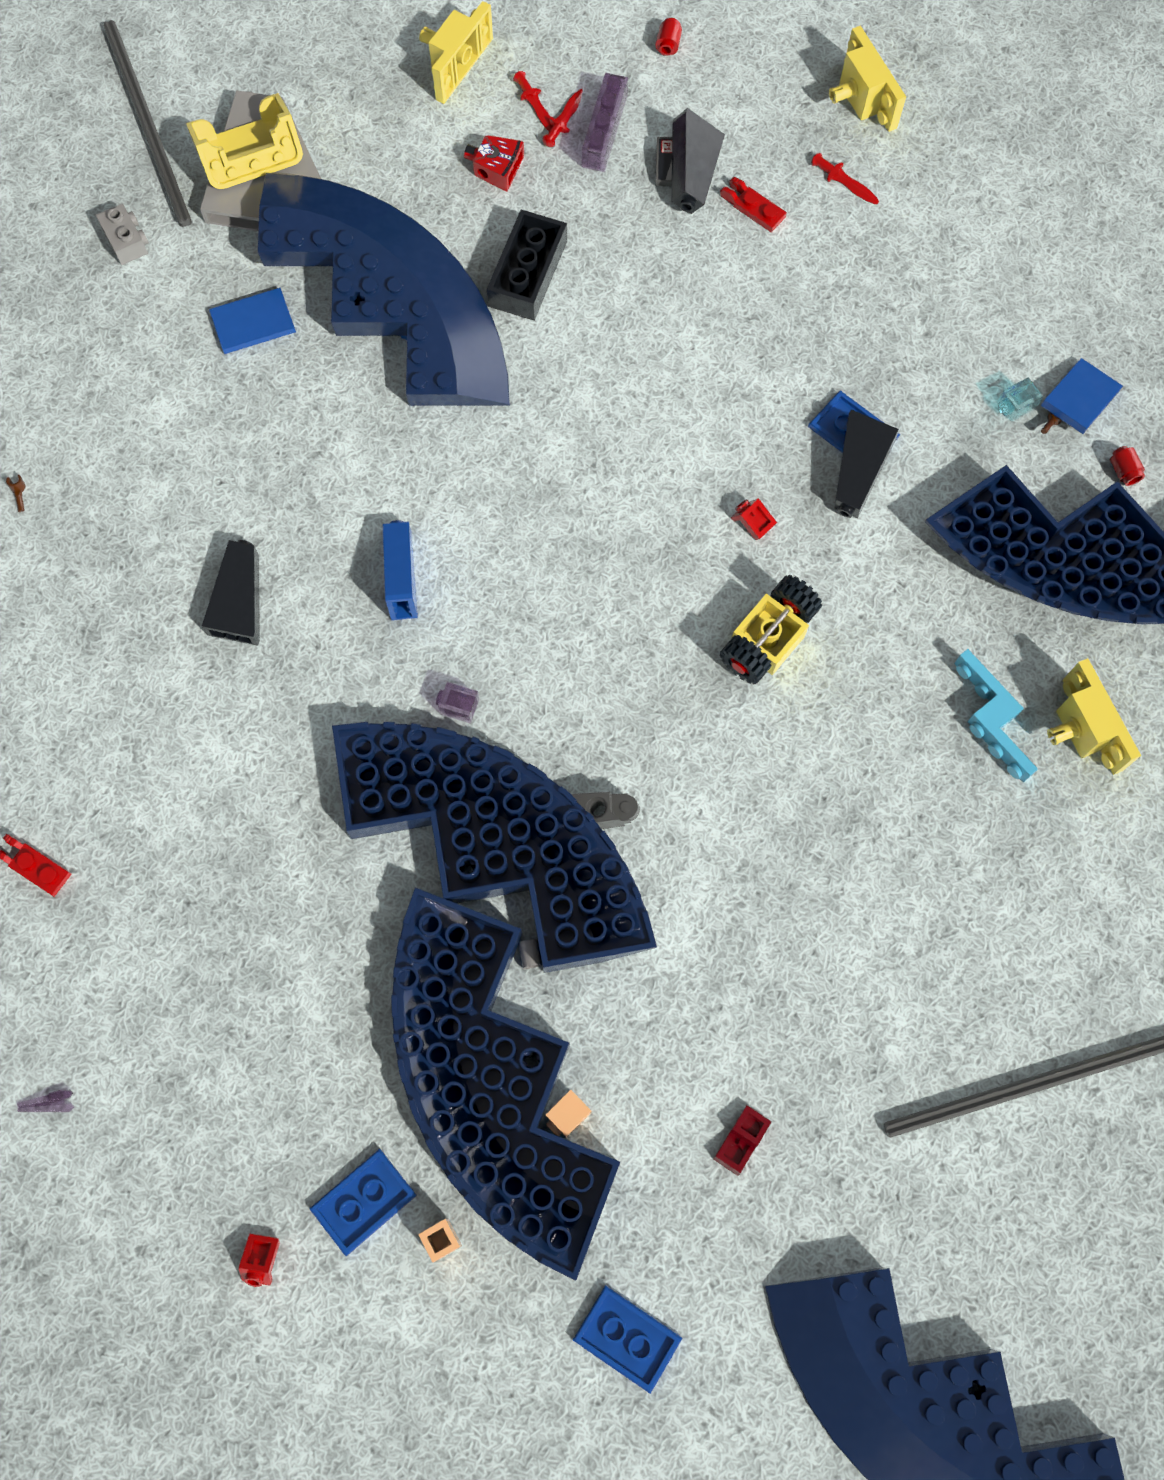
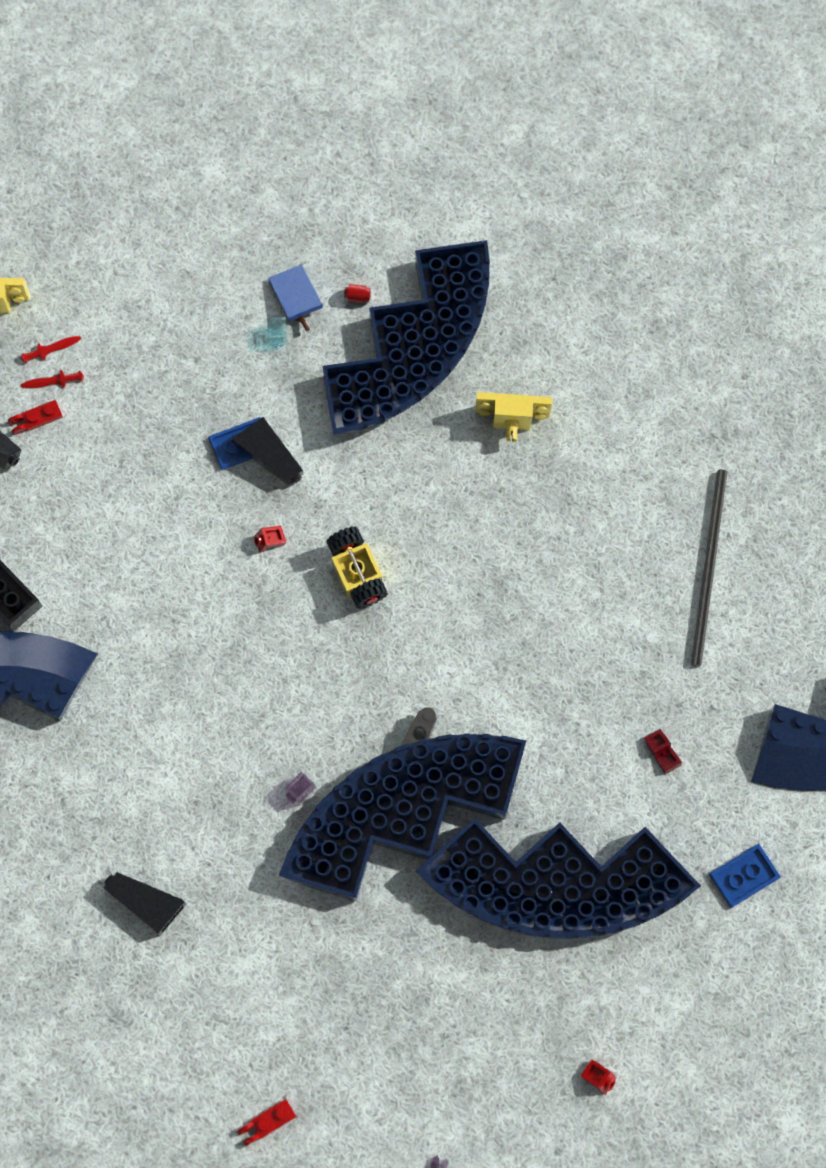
camera: 65 degrees left, 0 degrees up
(363, 1202) = (593, 997): blue tile -> none
(399, 570) = (185, 782): blue slope -> none
(440, 1240) = (639, 957): light nougat brick -> none
(530, 954) = (489, 822): light grey hinge -> none
(567, 1115) = (600, 846): light nougat brick -> none
(813, 206) = (59, 379): none -> red sword
(994, 716) = (479, 465): medium azure bracket -> none

